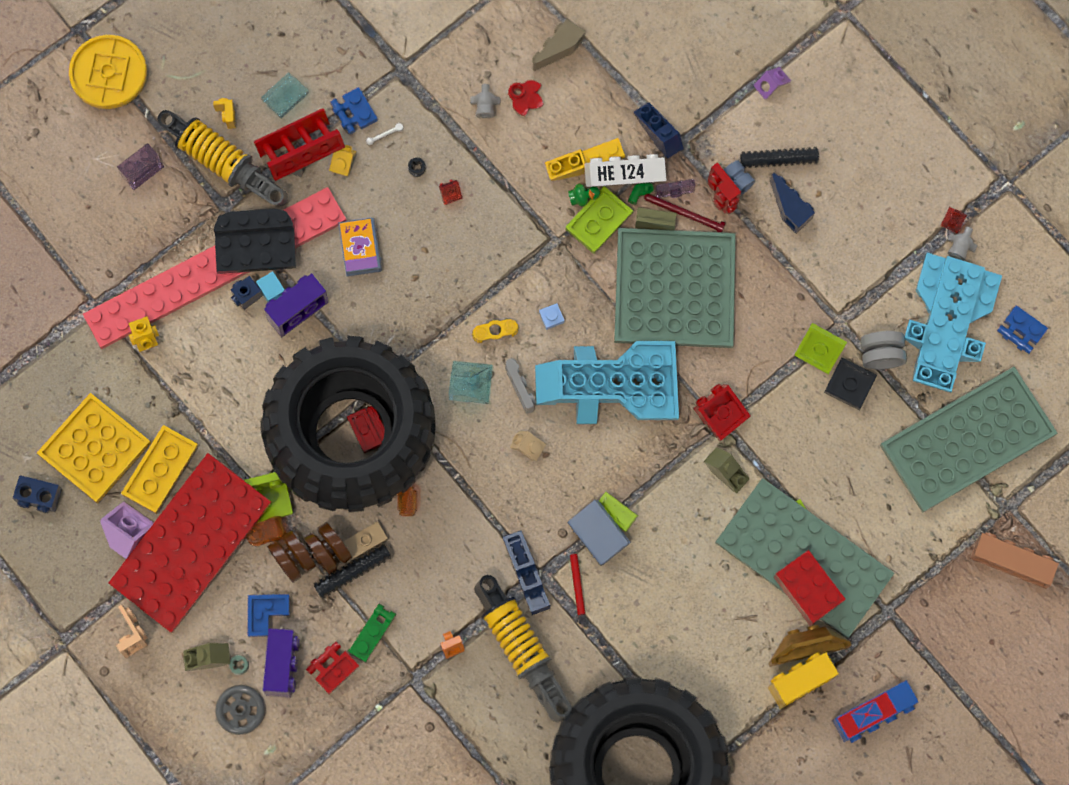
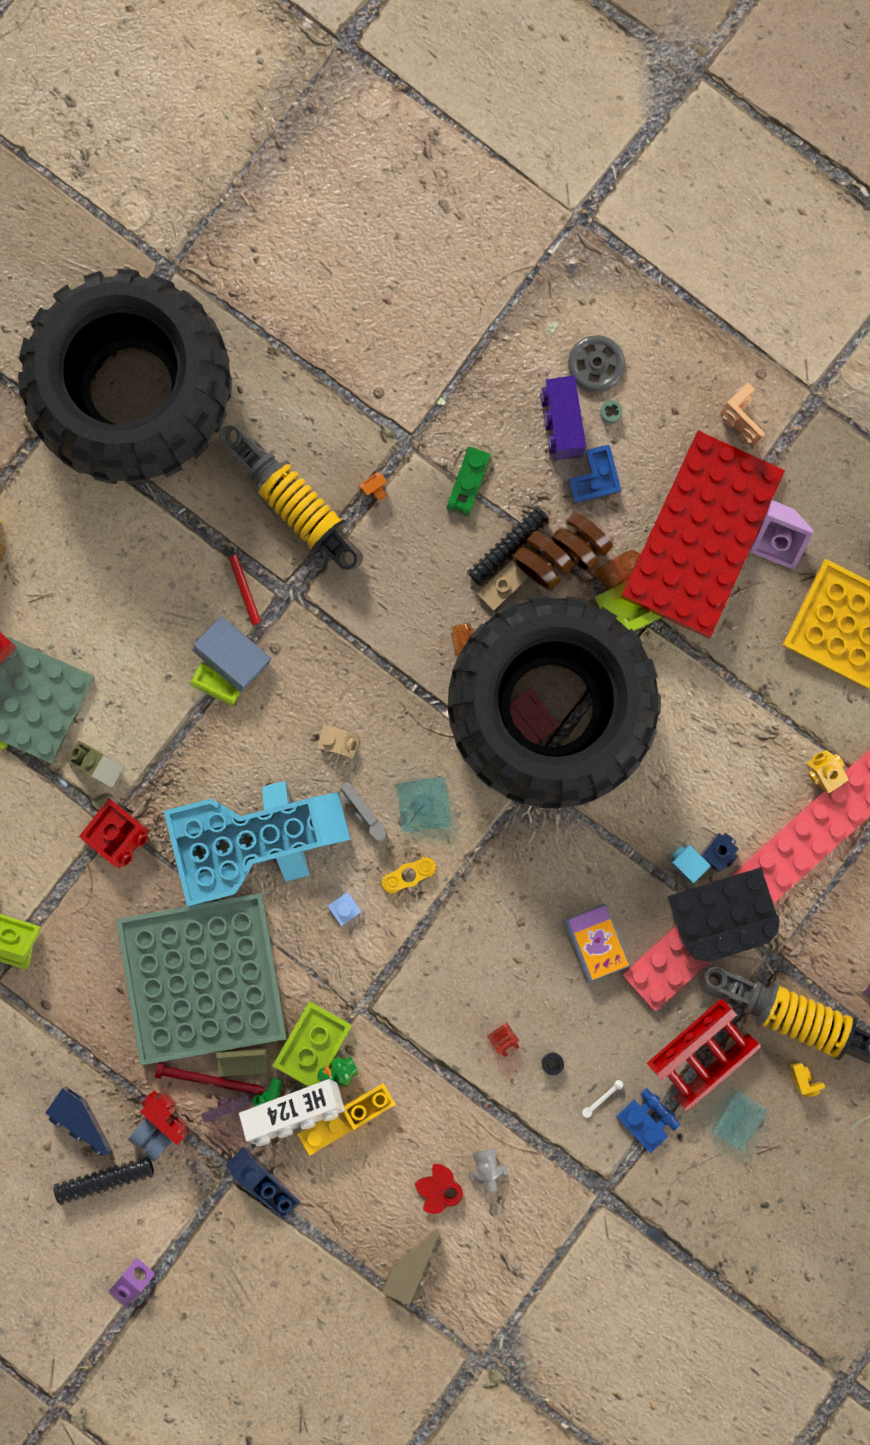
camera: 170 degrees right, 10 degrees up
(159, 469) = (762, 615): yellow plate -> none
(206, 656) = (649, 410): olive slope -> none
(296, 304) = (655, 847): dark purple brick -> none
(336, 672) = (498, 426): red plate -> none
(342, 160) = (645, 1047): yellow bracket -> none
(526, 572) = (306, 589): dark blue slope -> none

